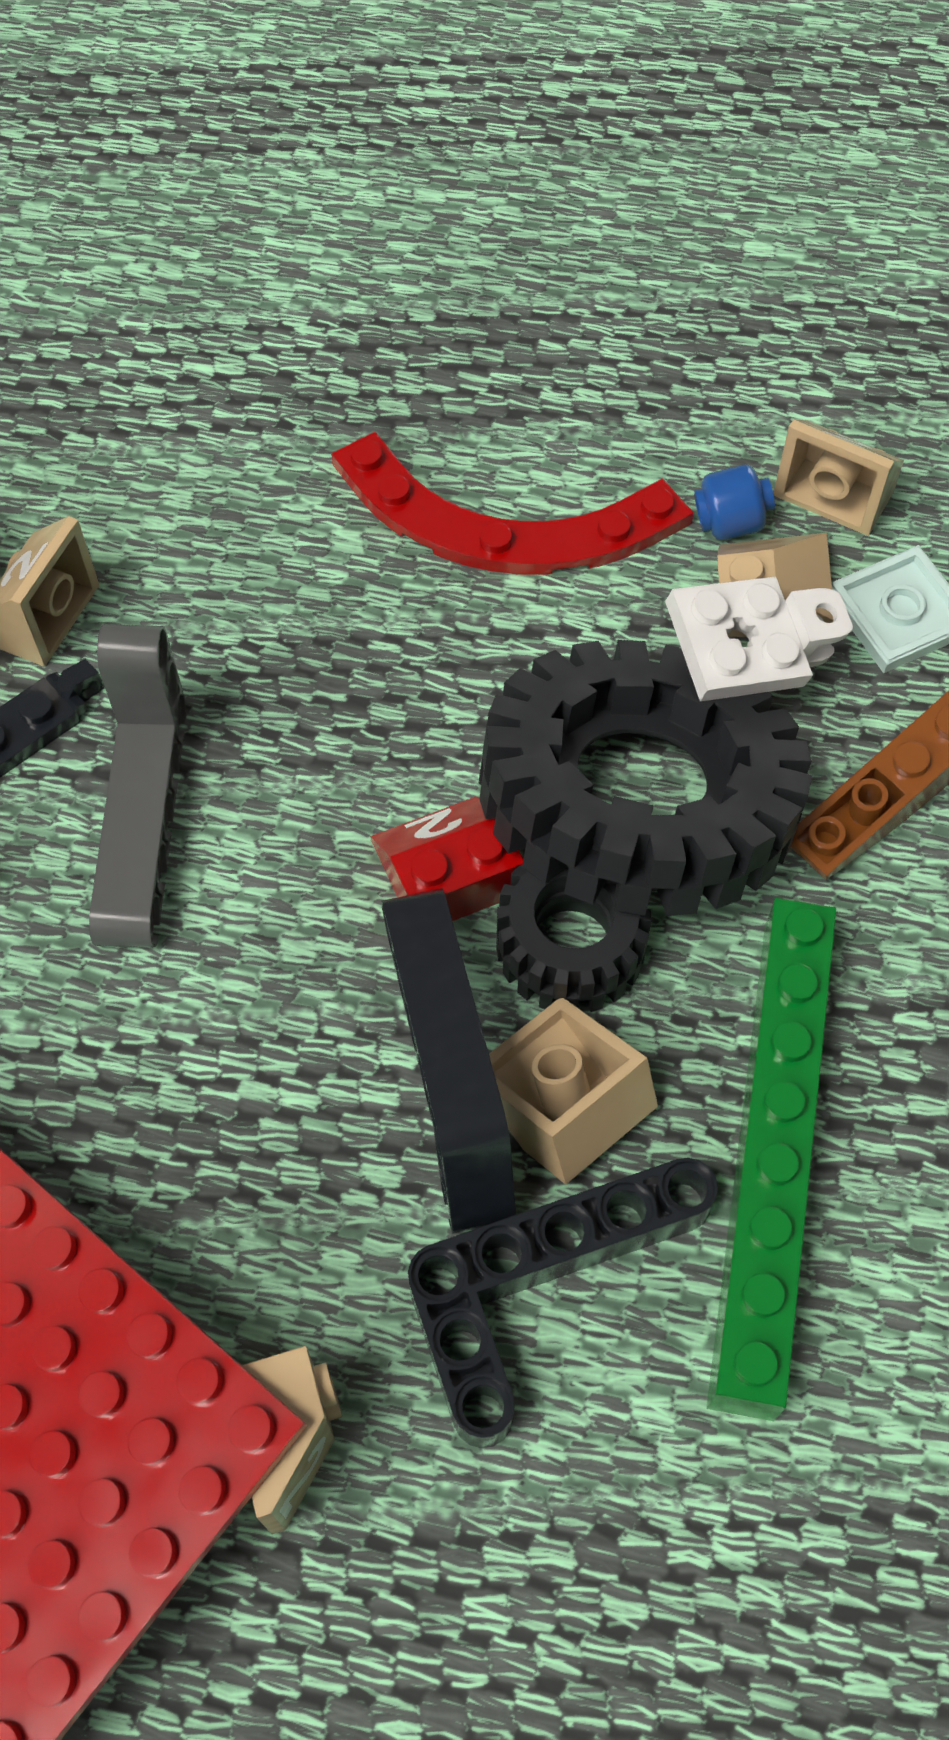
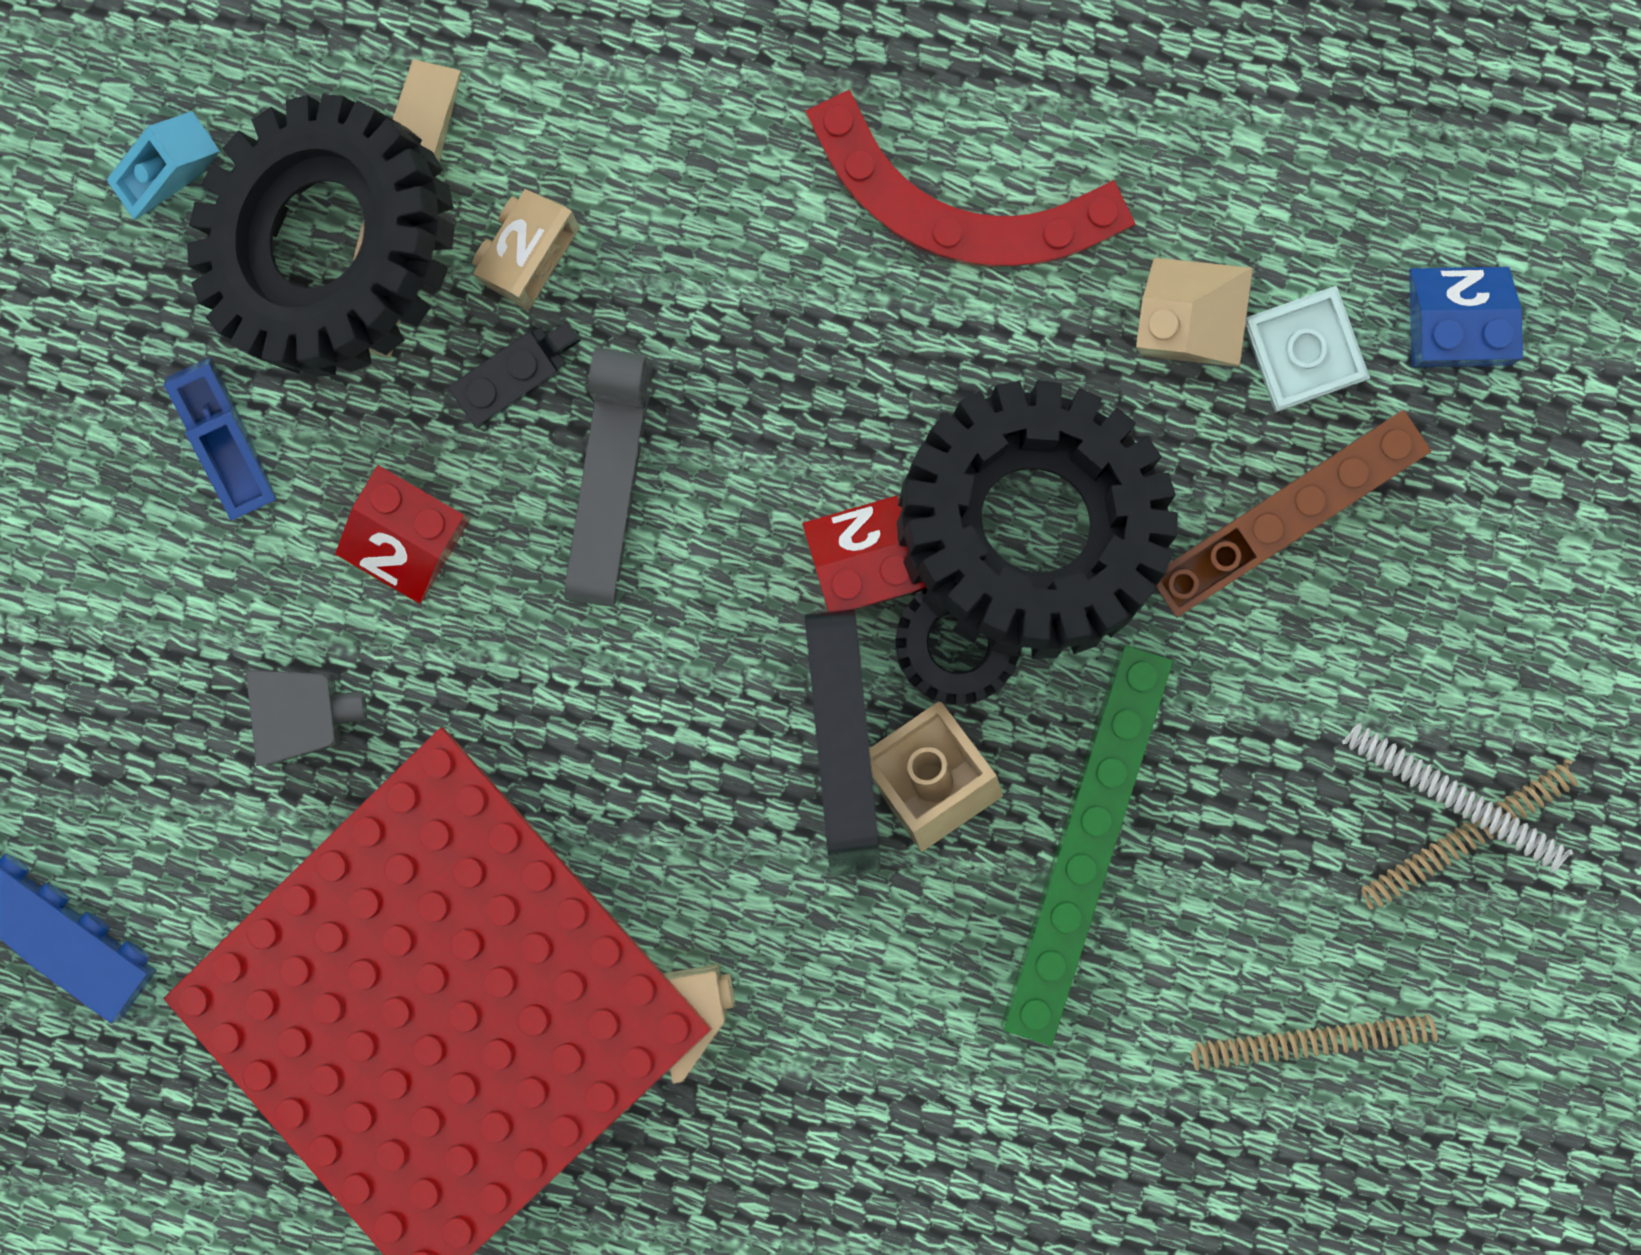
camera: 10 degrees right, 25 degrees up
(538, 1264) = (890, 909): black beam -> none
(733, 502) = (1174, 220): blue head -> none
(782, 635) = (1176, 396): white plate -> none
(836, 476) = (1278, 203): tan slope -> none

